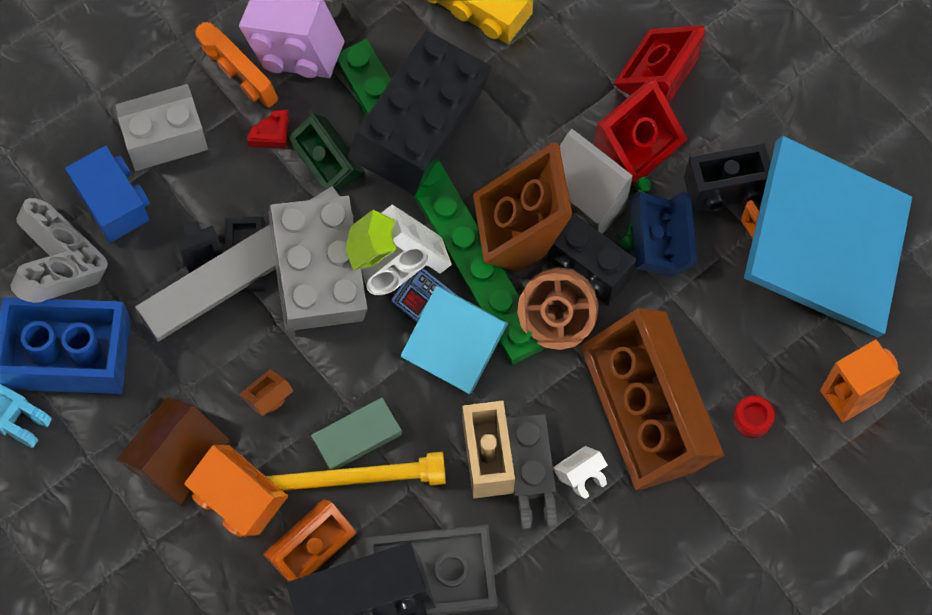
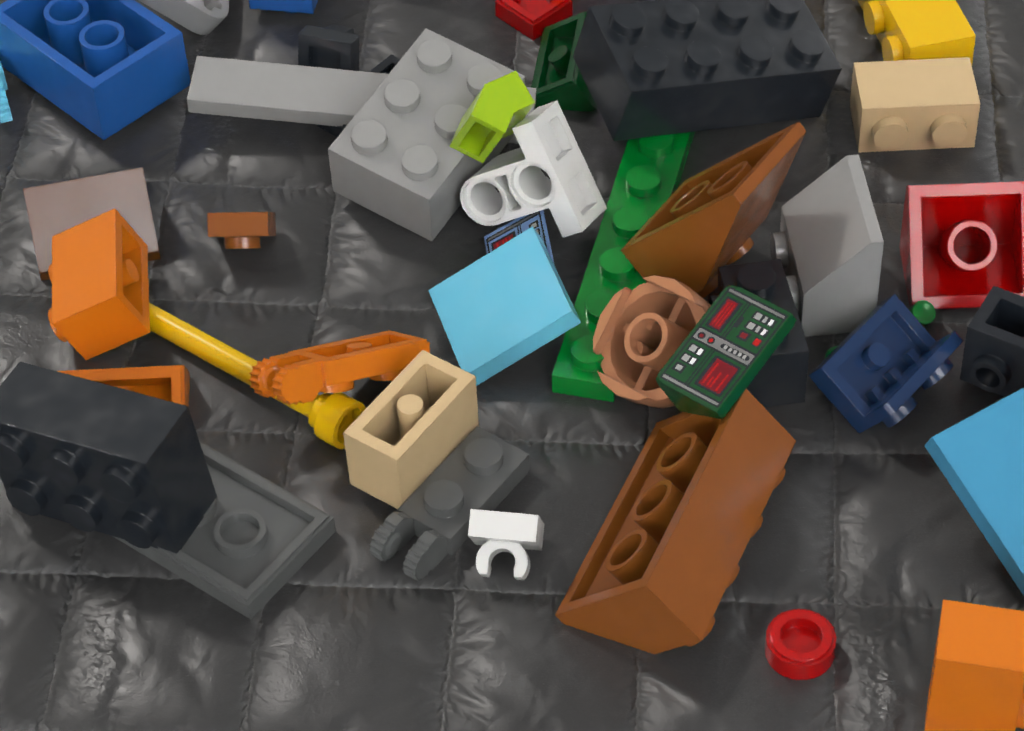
camera: 45 degrees right, 20 degrees down
(356, 434) = (275, 327): sand green tile -> none
(415, 440) = (335, 366): none -> orange hinge
(532, 57) = (914, 104): none -> tan brick
(614, 296) = (724, 352): none -> slope

